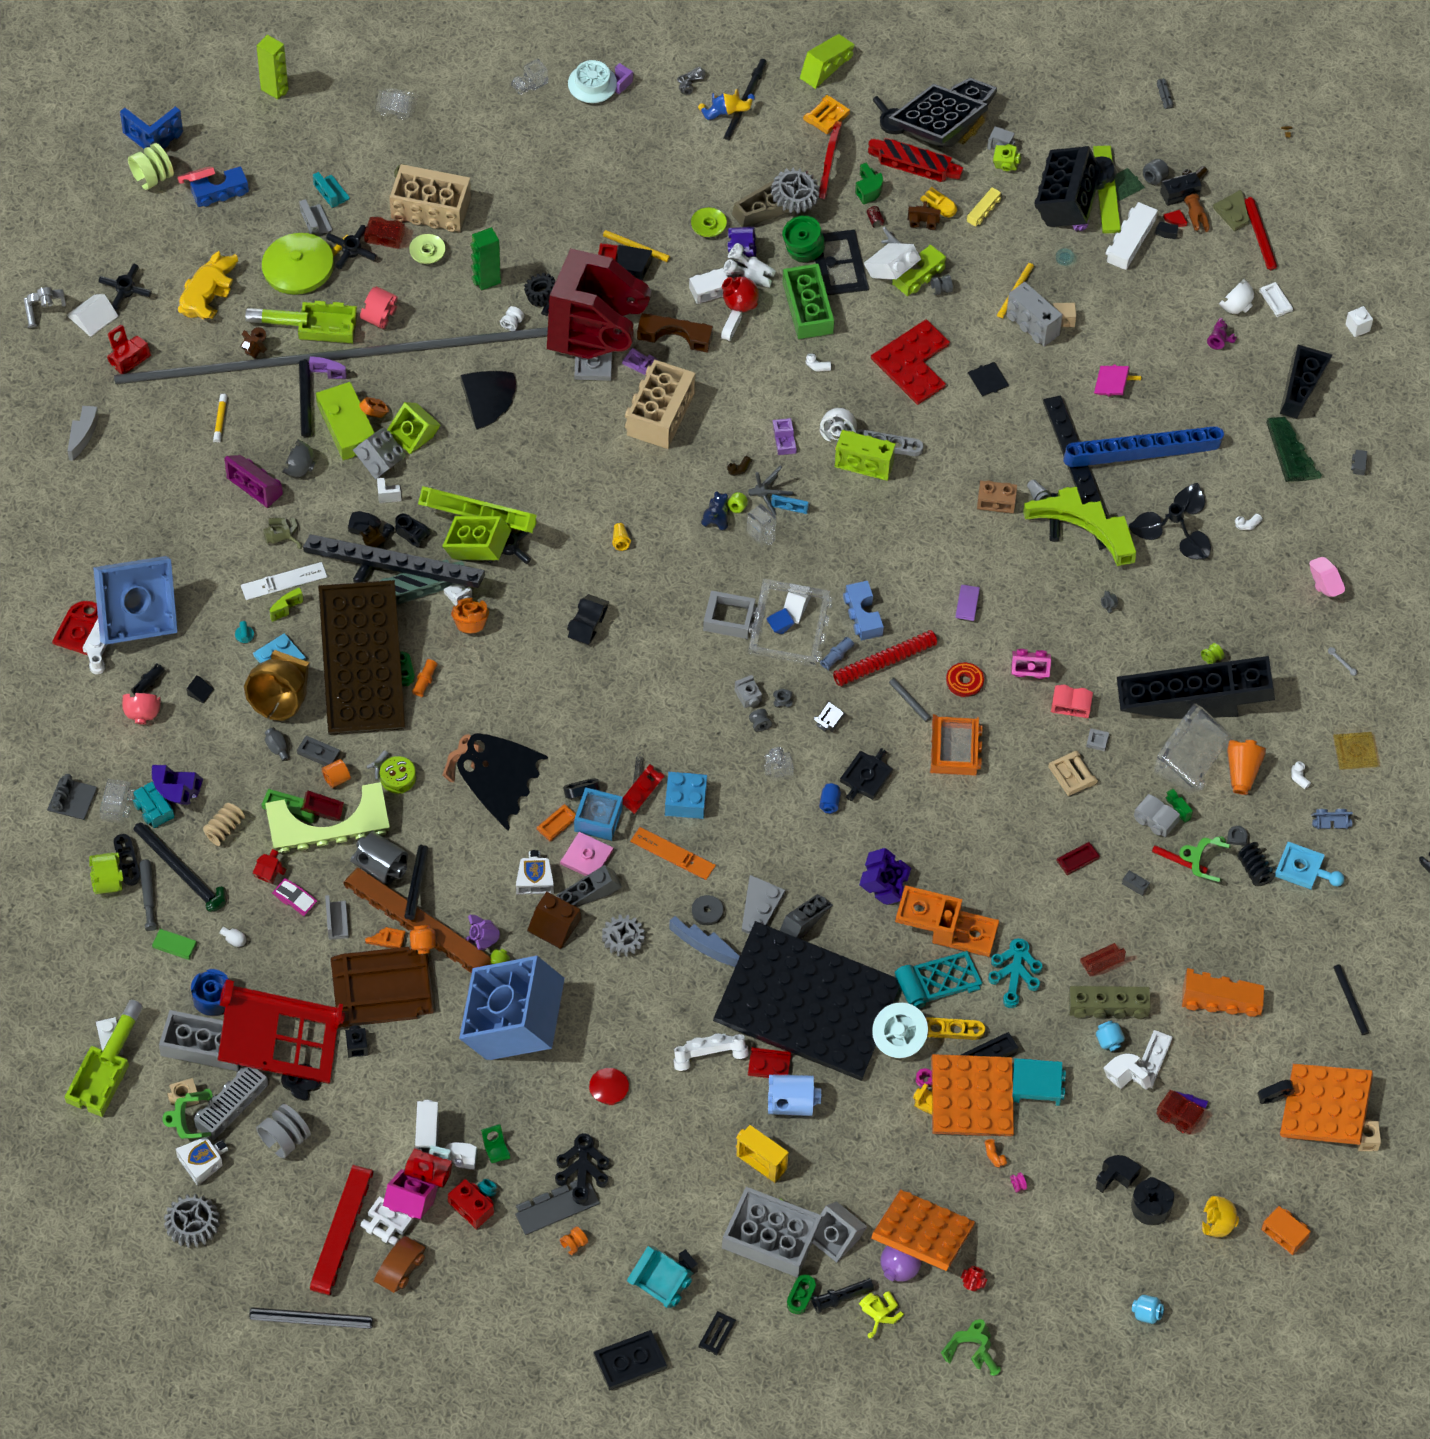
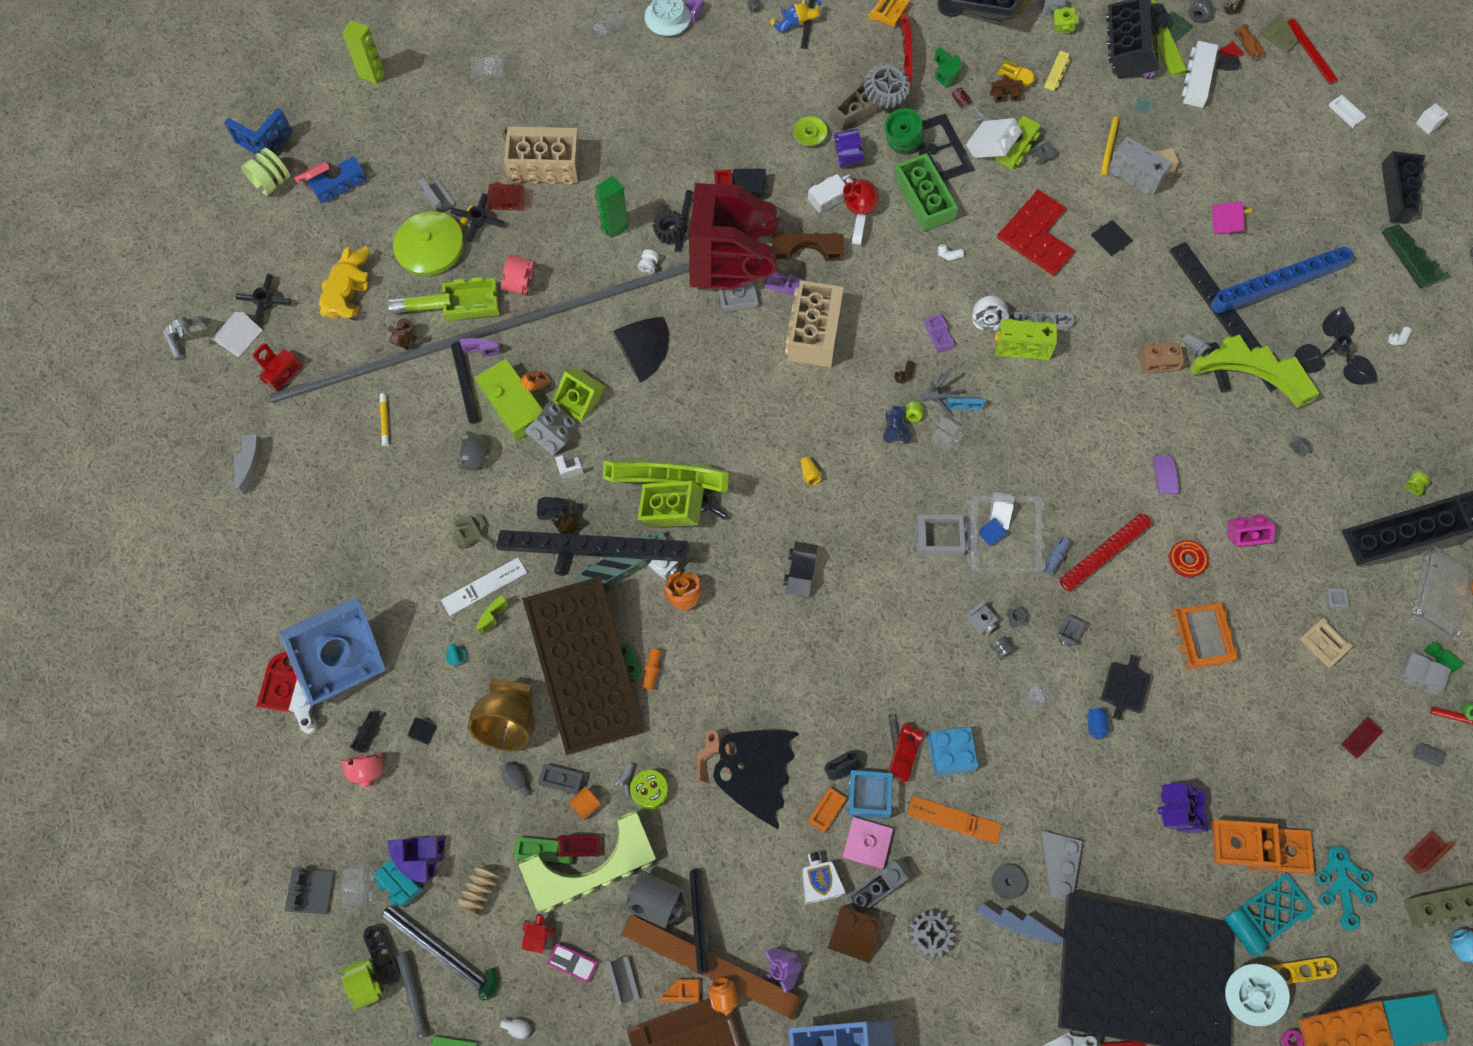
camera: 10 degrees left, 10 degrees up
(252, 479) = (430, 481): magenta slope -> none
(280, 644) = (496, 666): medium azure wing -> none
(330, 189) = (444, 163): teal panel -> none
(413, 532) = (604, 507): black piece -> none
(424, 243) = (547, 200): yellowish green dish -> none
(499, 956) = (808, 992): lime piece -> none
(622, 240) = (742, 165): yellow bar -> none
(754, 270) = (867, 168): white piece -> none
(805, 916) = (1113, 870): dark grey slope -> none
(866, 624) = (1076, 518): medium blue arch -> none
(910, 700) = (1141, 592): dark grey bar -> none
(914, 160) = (981, 37): red hinge -> none
(1071, 701) = (1300, 562): coral brick -> none
(1180, 187) = (1229, 21): black brick -> none
(1219, 336) = (1310, 158): magenta piece -> none
(1239, 298) = (1318, 114): white cylinder -> none

